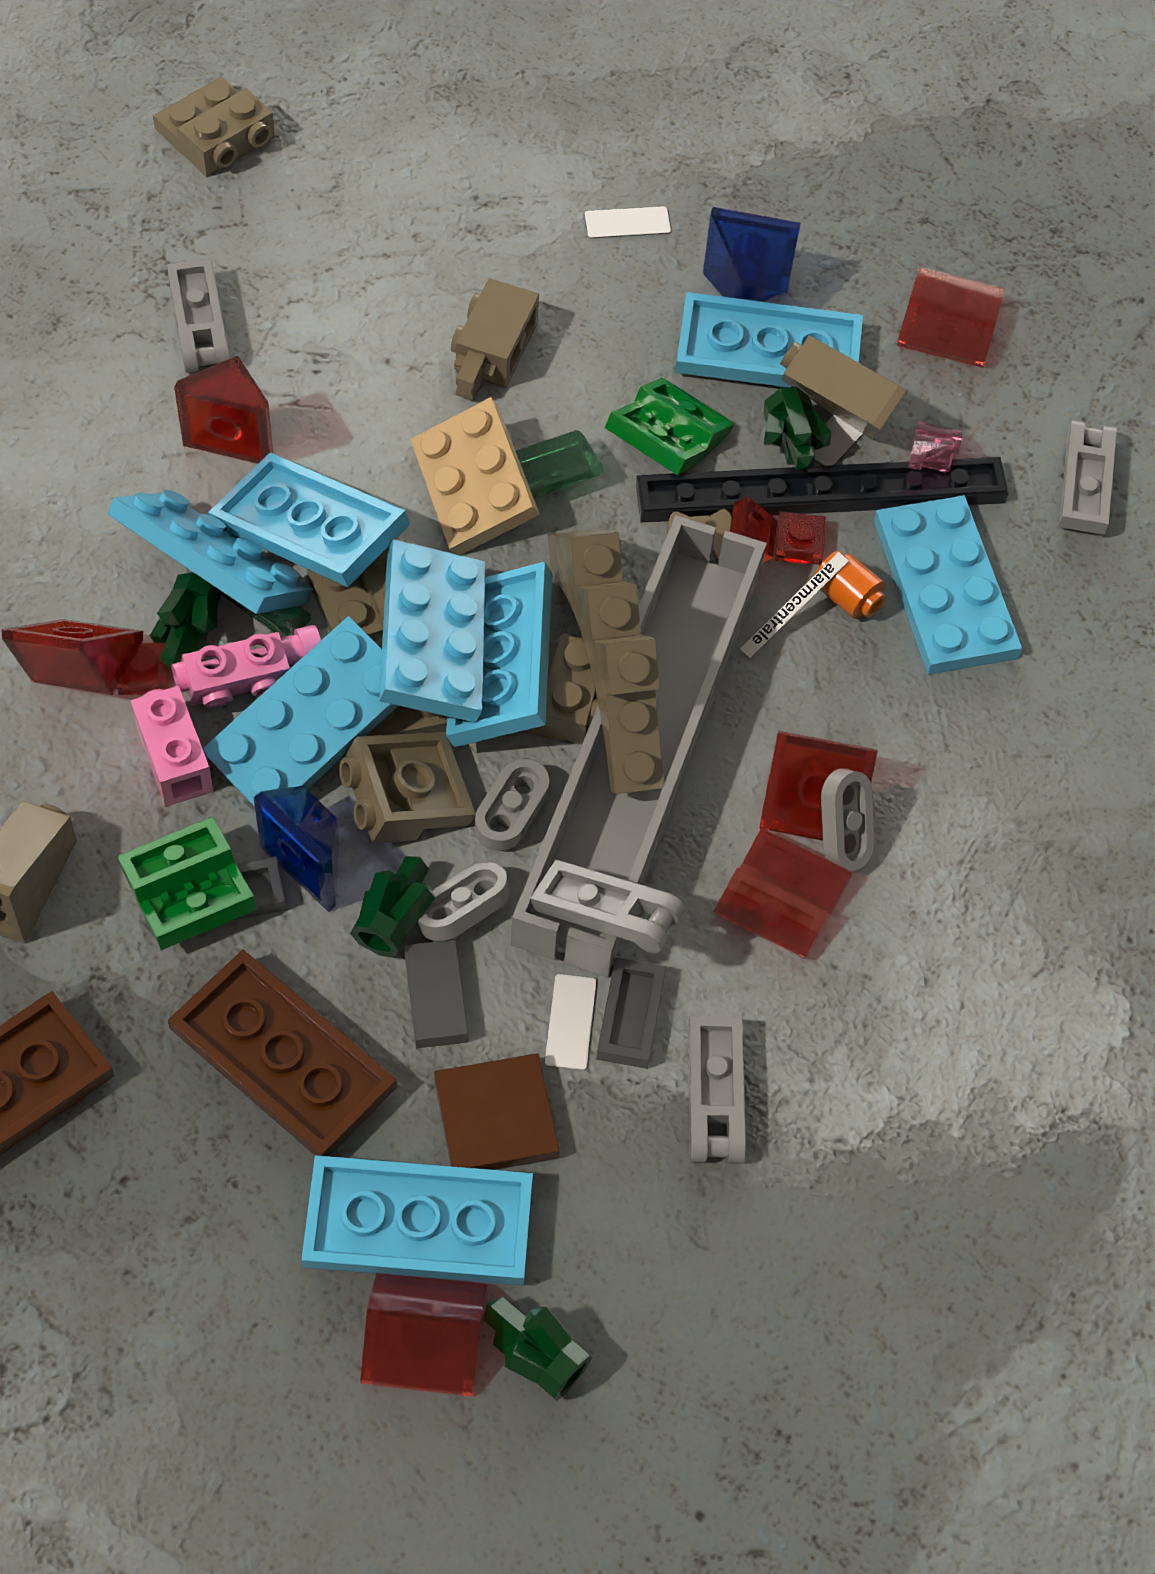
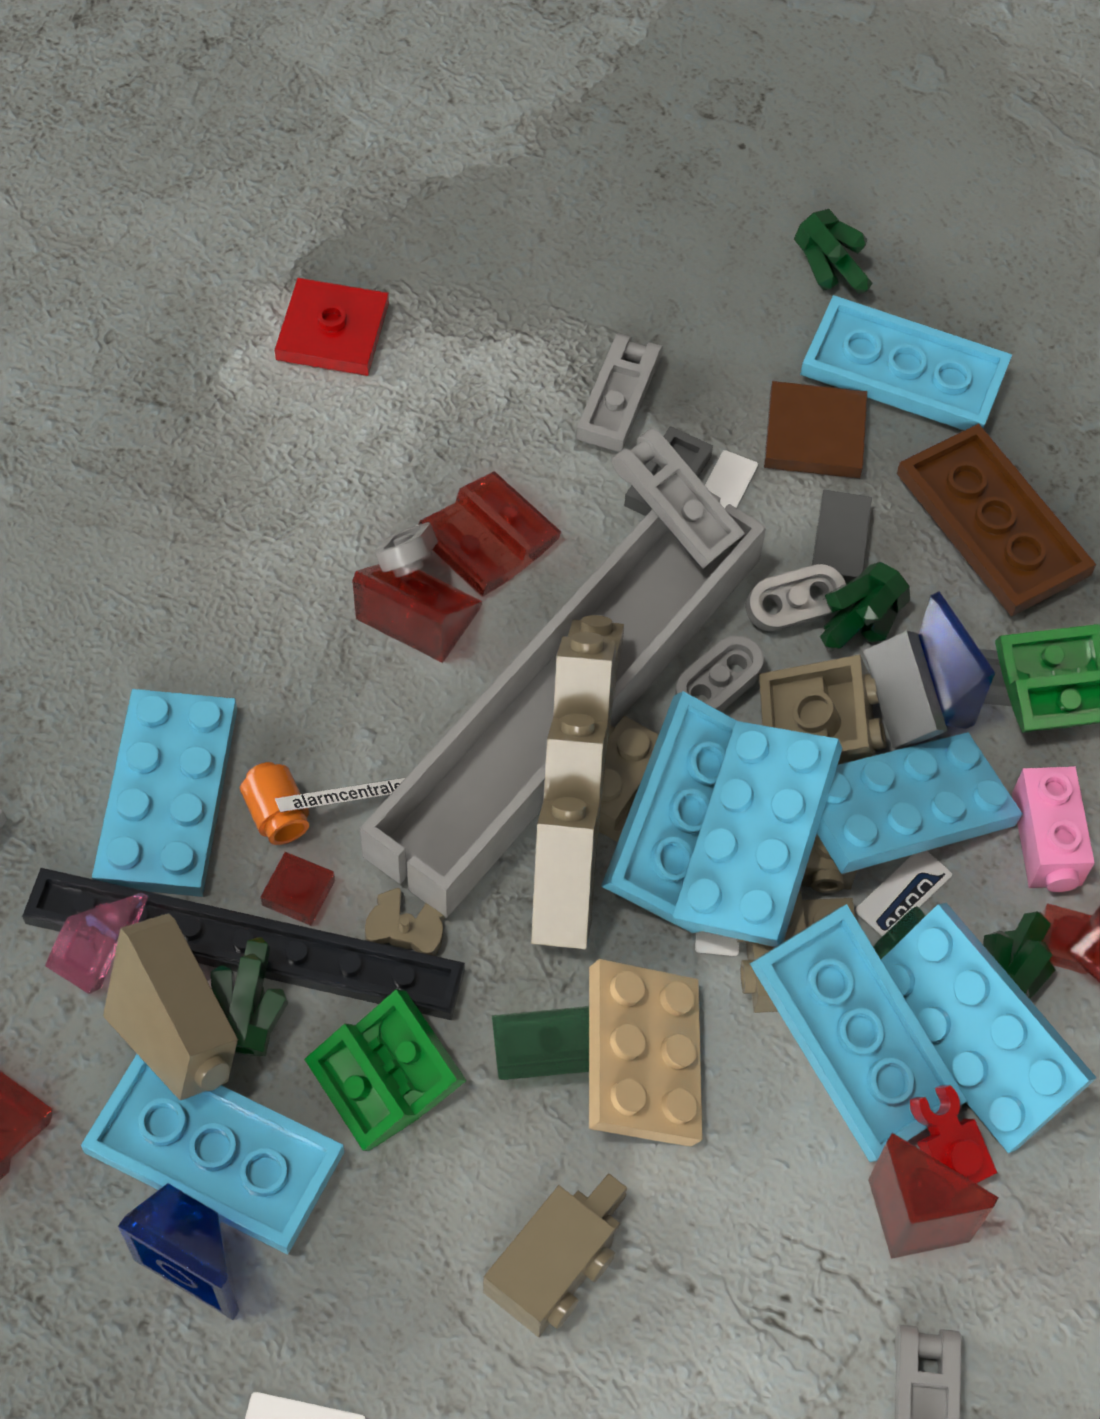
camera: 160 degrees left, 0 degrees up
(213, 475) = (953, 1141): none -> red plate
(239, 668) = (965, 881): bright pink brick -> none
(334, 800) = (905, 690): none -> tile
(423, 1334) = (920, 292): clear red slope -> none
(754, 522) = (351, 897): clear red plate -> none
(1046, 1083) = (332, 326): none -> red plate

